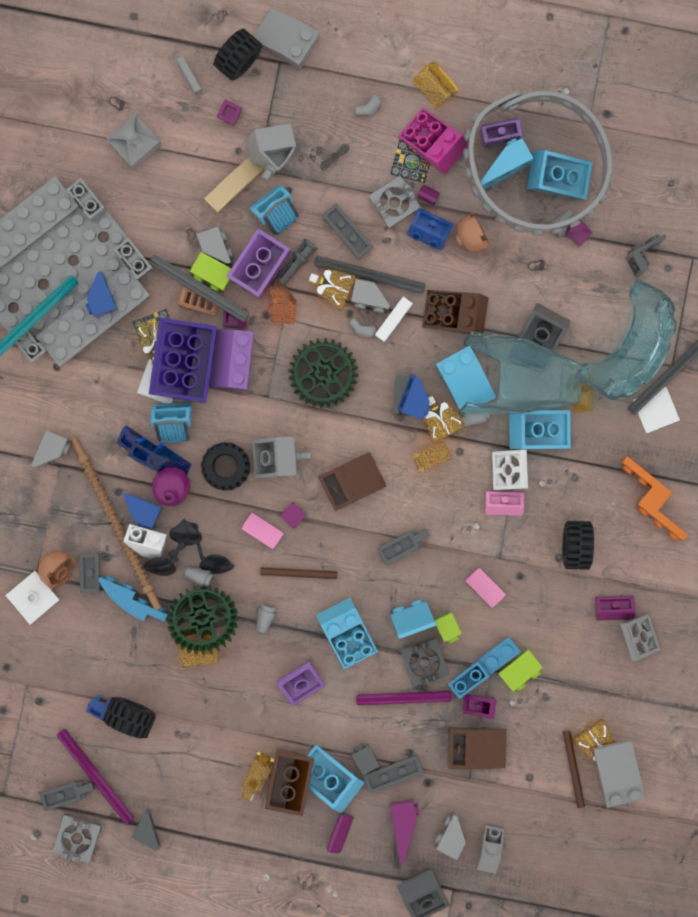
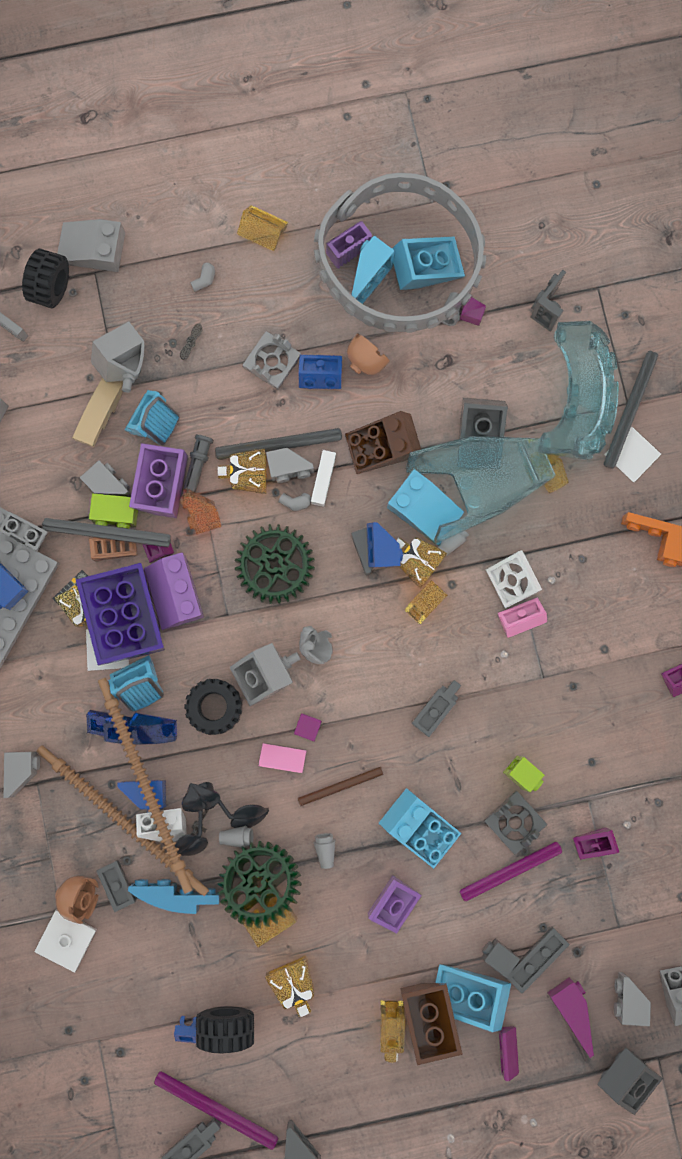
camera: 25 degrees left, 5 degrees down
(146, 429) = (177, 864): none -> medium nougat hose
(171, 486) = (164, 754): magenta cylinder -> none
(195, 709) = (293, 985): none -> clear yellow torso
(229, 112) = (63, 342): magenta plate -> none
(327, 453) = (315, 645): none -> light grey hair
(347, 231) = (236, 409): dark grey plate -> none
(352, 481) = (354, 664): reddish brown slope -> none
(409, 164) = (272, 313): sticker -> none
(412, 619) = (484, 782): medium azure slope -> none
(428, 195) = (303, 339): magenta slope -> none
(434, 140) = (285, 282): dark pink slope -> none
(476, 748) = (612, 892): reddish brown slope -> none
(484, 667) = (580, 799): dark azure slope -> none
(485, 587) = (543, 714): bright pink slope -> none
(520, 670) = (621, 786): lime brick -> none
(540, 430) = (524, 525): medium azure slope -> none
(578, 545) = (621, 626): black tyre -> none

